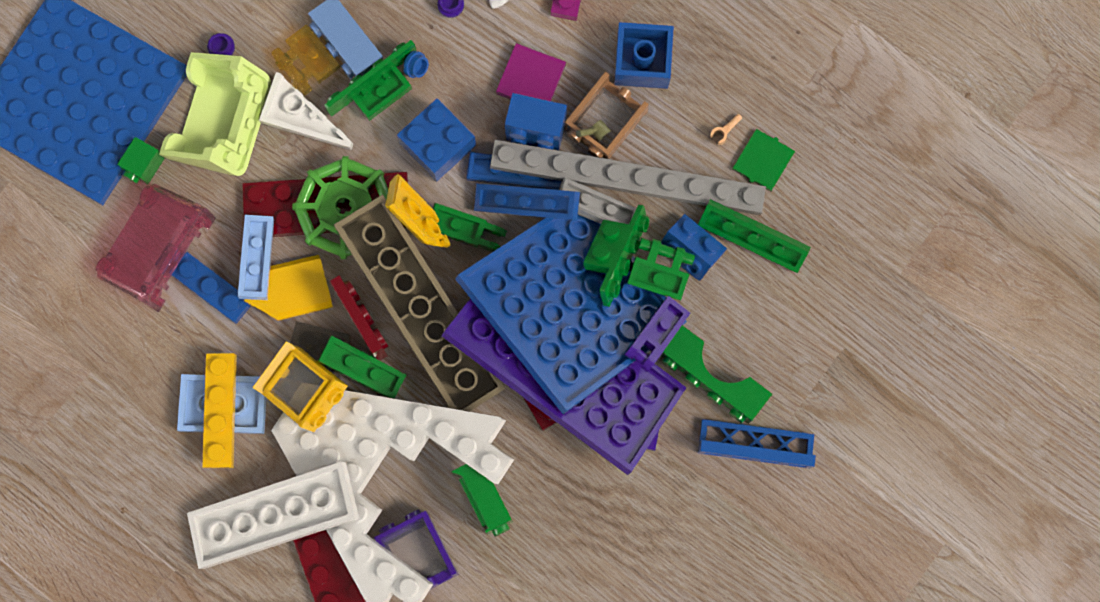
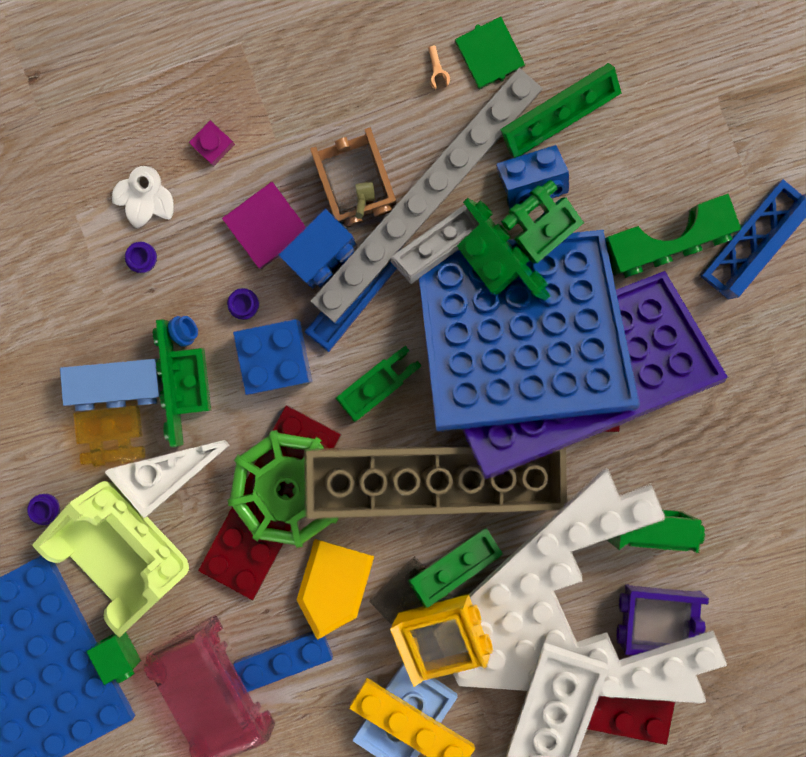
camera: 55 degrees left, 10 degrees up
(256, 257) = (284, 605): light blue plate -> none
(360, 317) = (407, 541): dark red plate -> none
(414, 213) = (339, 428): yellow tile -> none
(462, 96) = (243, 304): none -> dark purple plate
(527, 201) = (394, 308): blue plate -> none
(643, 55) = (315, 99): blue brick -> none
(658, 333) = (606, 265): dark purple plate -> none

